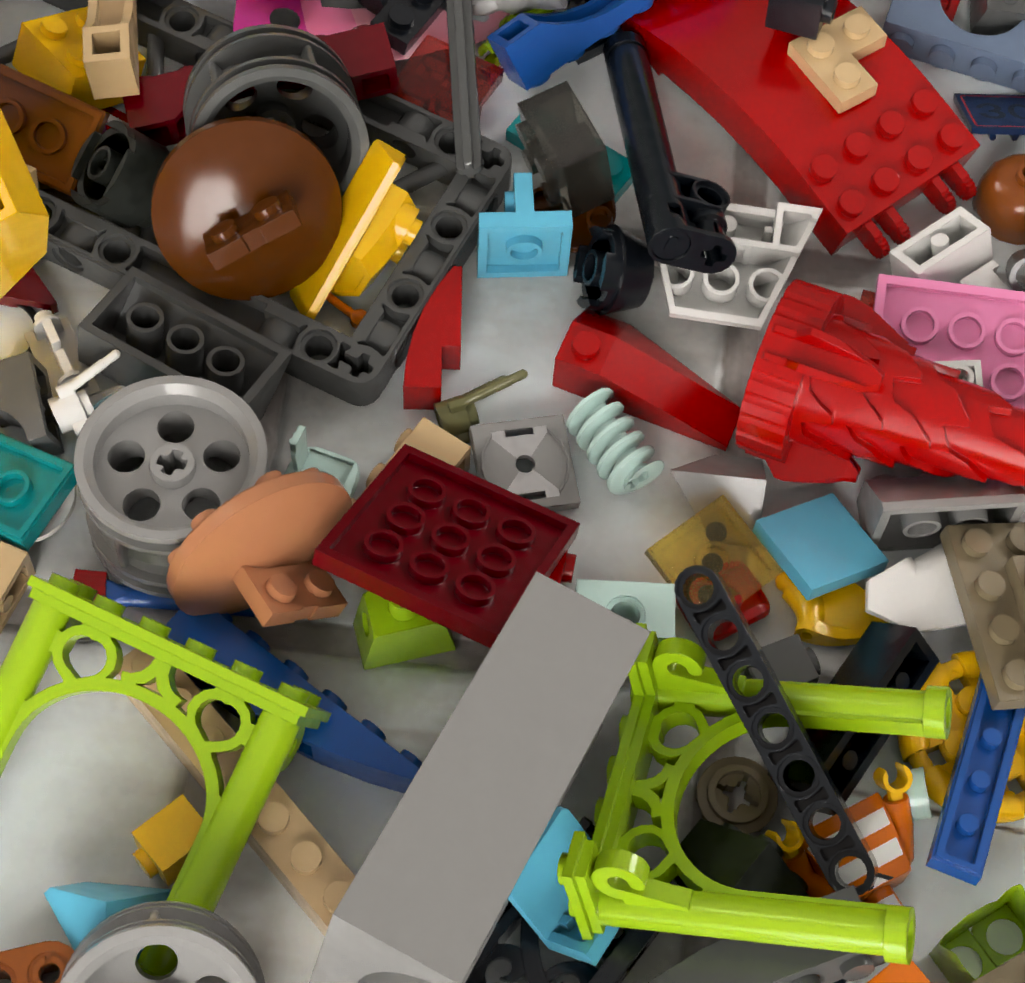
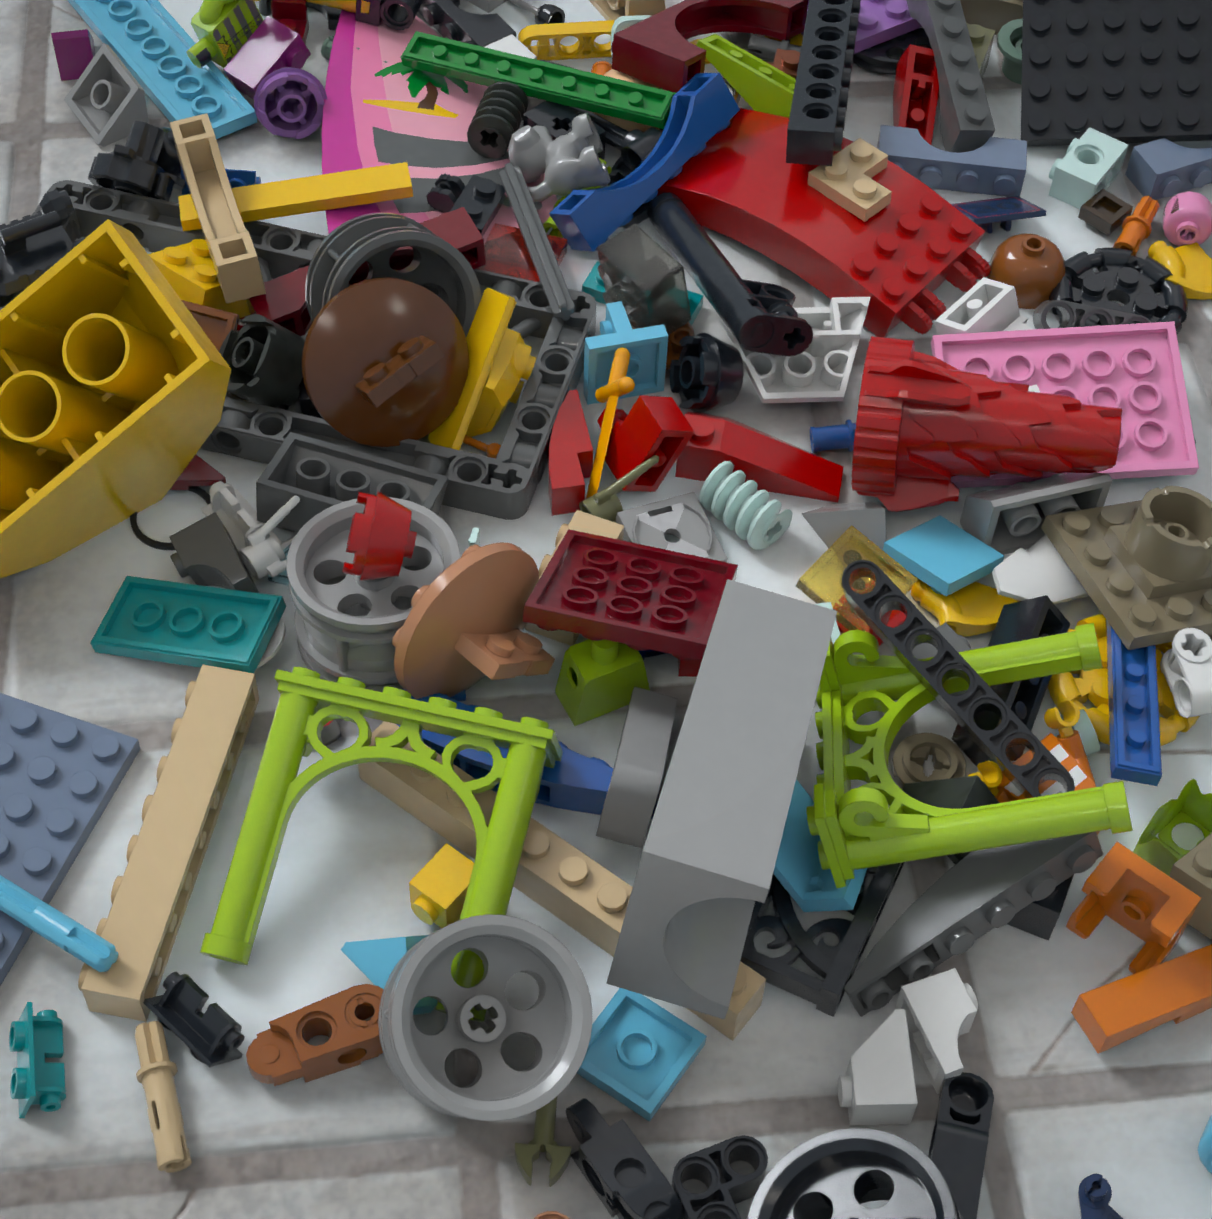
camera: 10 degrees left, 10 degrees down
(174, 438) = (379, 538): none -> red cone
(410, 735) = (638, 768): none -> light grey beam
(501, 277) = (617, 386): none -> light orange sword
(519, 337) = (649, 429): none -> red hinge
(732, 371) = (833, 437): none -> blue pin

